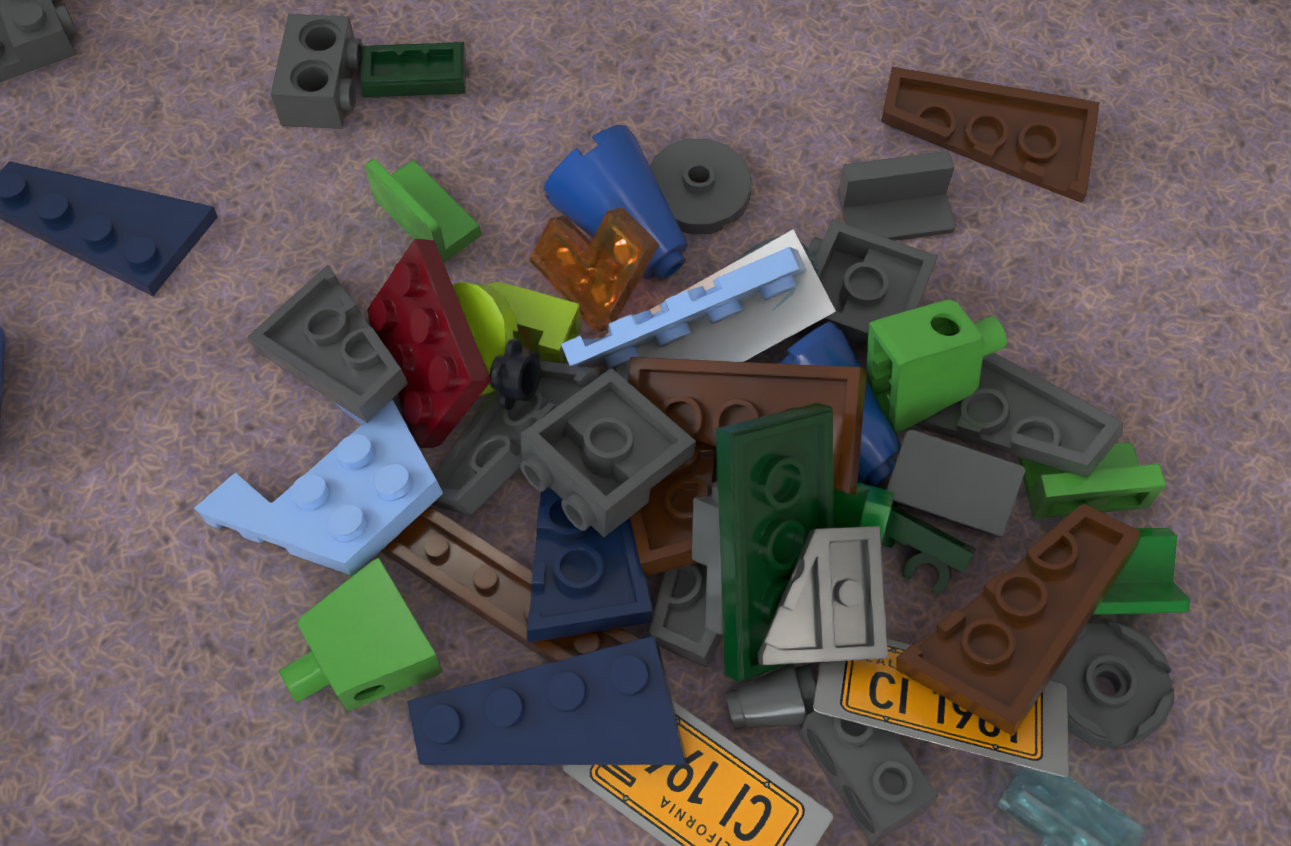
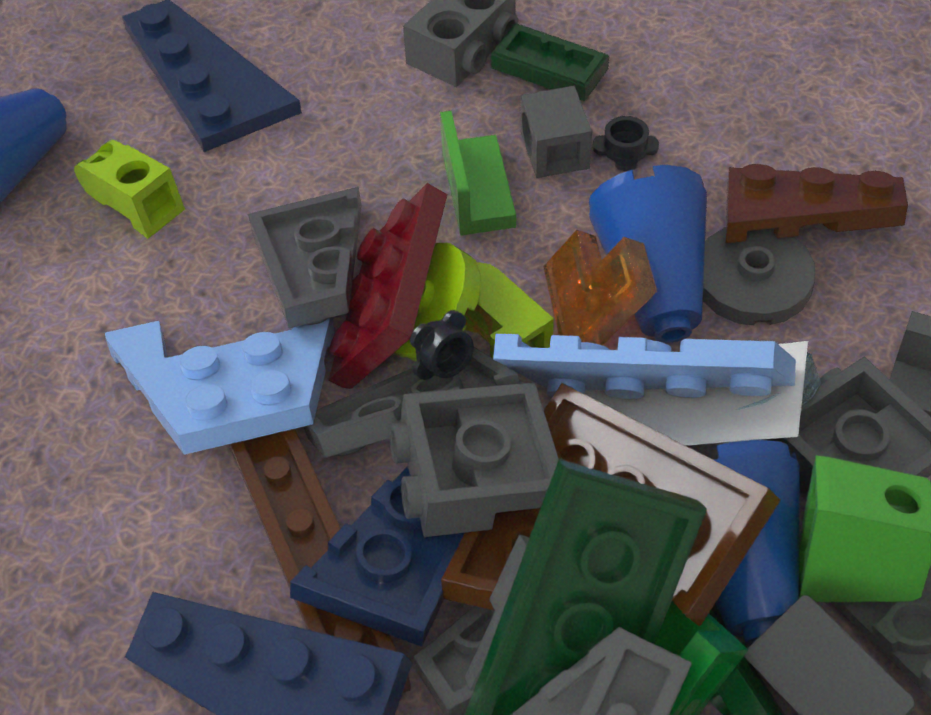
camera: 35 degrees right, 10 degrees down
(114, 362) = (131, 185): none -> lime leg
(361, 643) = (153, 518): bright green torso -> none
(464, 134) = (555, 131): none -> dark grey brick
(526, 105) = (626, 142): none -> black plate
(694, 108) = (791, 199): none -> reddish brown wing

